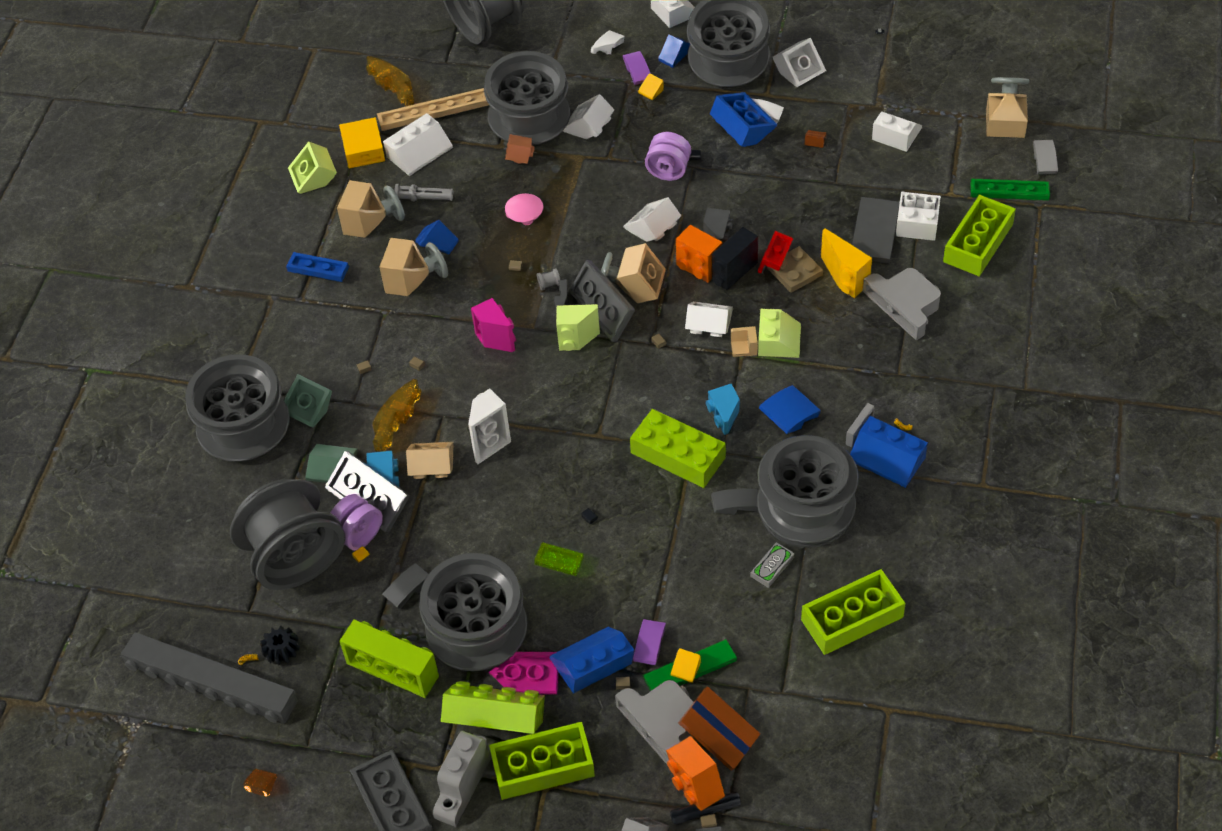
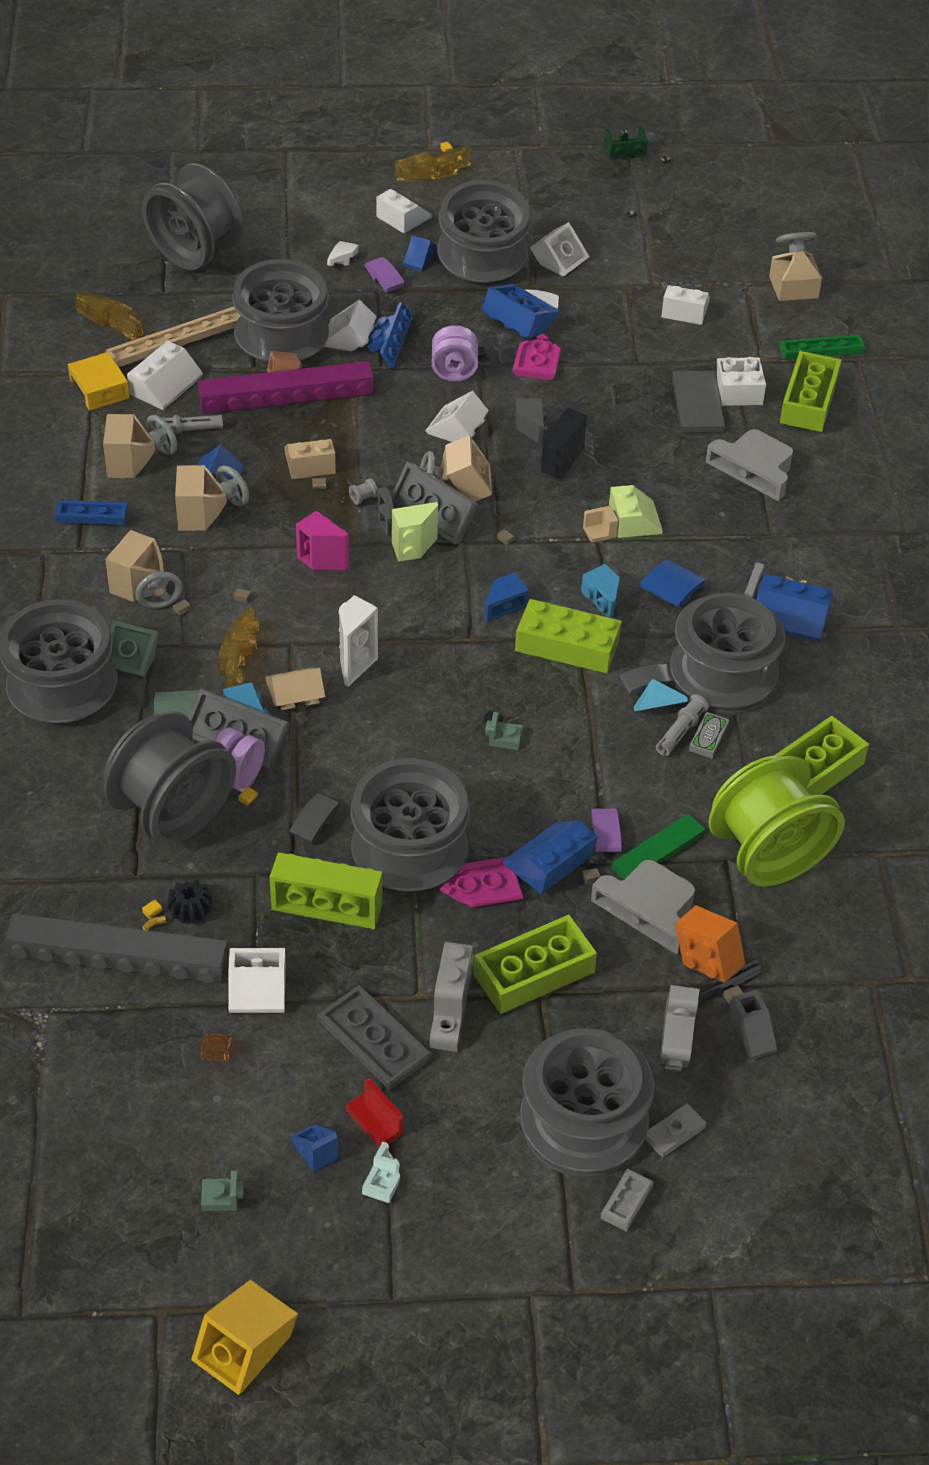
camera: 20 degrees left, 5 degrees down
(250, 645) = (152, 909): none -> yellow piece
(308, 730) = (257, 980): none -> white slope
(312, 168) = (48, 413): yellowish green slope -> none
(334, 331) = (138, 572): none -> tan piece
(493, 707) = (464, 919): lime brick -> none
(514, 241) = (310, 458): none -> tan slope
(515, 169) = (285, 387): none -> magenta brick
(524, 208) = (308, 425): bright pink dish -> none
(559, 559) = (477, 764): clear neon green plate -> none
(591, 532) = (503, 734): none -> sand green bracket
(622, 128) = (390, 334): none -> blue bracket
(635, 401) = (506, 596): none -> blue slope
(651, 87) = (407, 291): yellow slope -> none
(686, 665) = (656, 843): yellow slope -> none
(695, 252) = (521, 443): orange brick -> none
(708, 318) = (554, 506): white slope -> none
(719, 728) = (716, 893): dark orange tile -> none
(737, 520) = (658, 695): none -> medium azure slope
(744, 168) = (537, 359): none -> dark pink tile
(756, 546) = (687, 718): none -> light grey pin
(776, 251) = (603, 432): red panel -> none
(787, 667) = (775, 819): none -> lime wheel
(797, 270) = (627, 449): dark tan plate -> none
(815, 138) = (602, 322): dark orange slope -> none
(845, 263) = (681, 433): yellow slope -> none
(1045, 156) = (848, 311): light grey slope -> none

